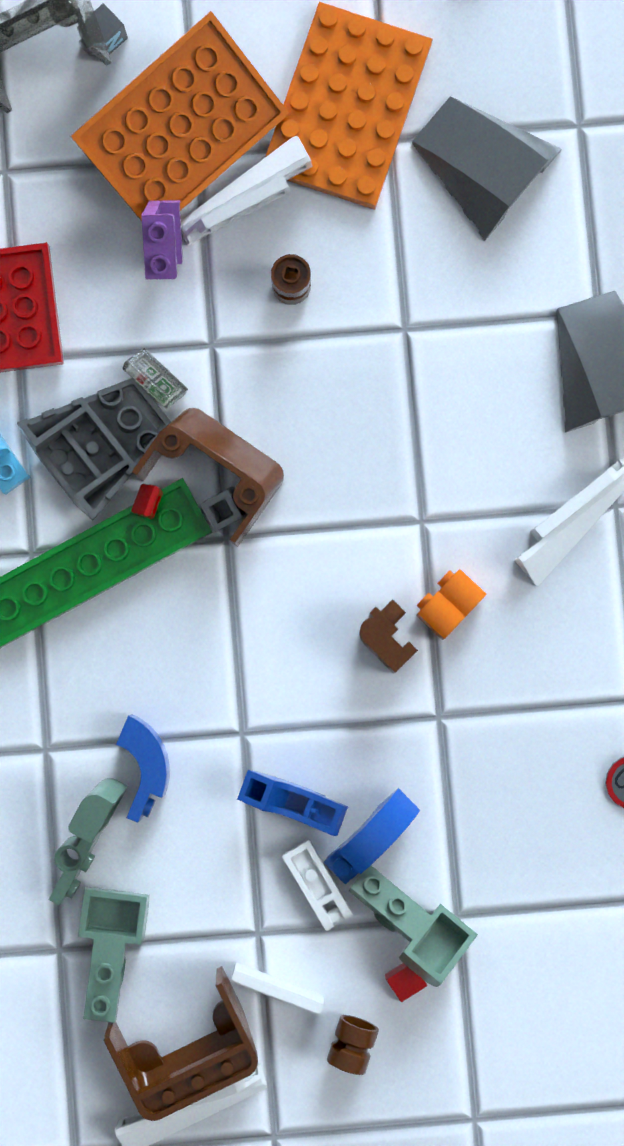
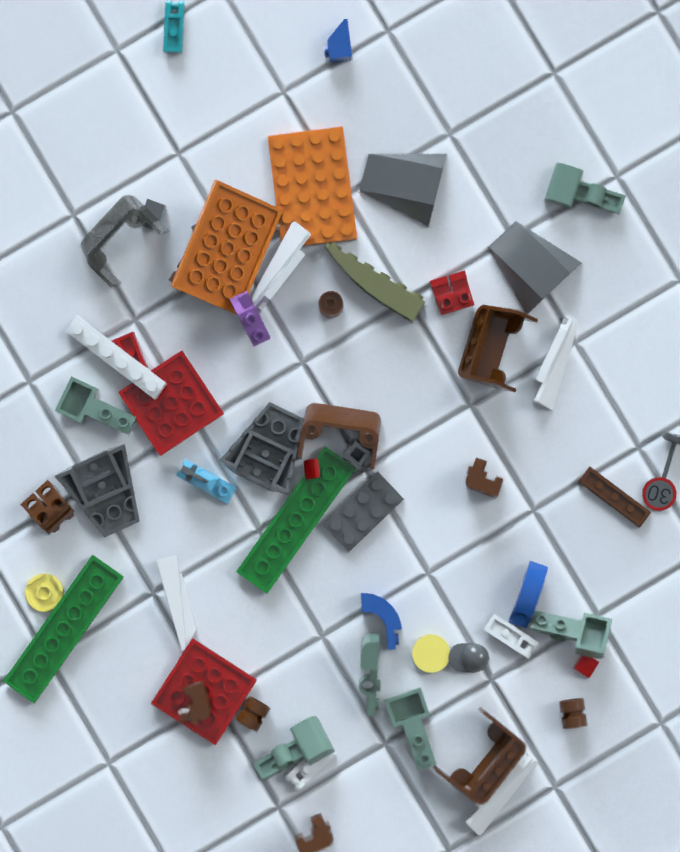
camera: 25 degrees left, 0 degrees up
(155, 378) = (281, 397): clear smoke tile -> none
(189, 852) = (431, 653): none -> light yellow tile
(192, 599) = (363, 511): none -> dark grey plate
(240, 885) = (468, 657): none -> dark grey cap
(277, 988) = (517, 703): white tile -> none
(292, 801) = (475, 596): blue arch -> none
(372, 286) = (378, 285): none -> olive slope
(450, 604) = (509, 443): orange brick -> none
(471, 359) = (457, 299): none -> red hips
(491, 443) = (487, 344): none -> reddish brown windscreen
(566, 755) = (614, 497): none -> reddish brown tile

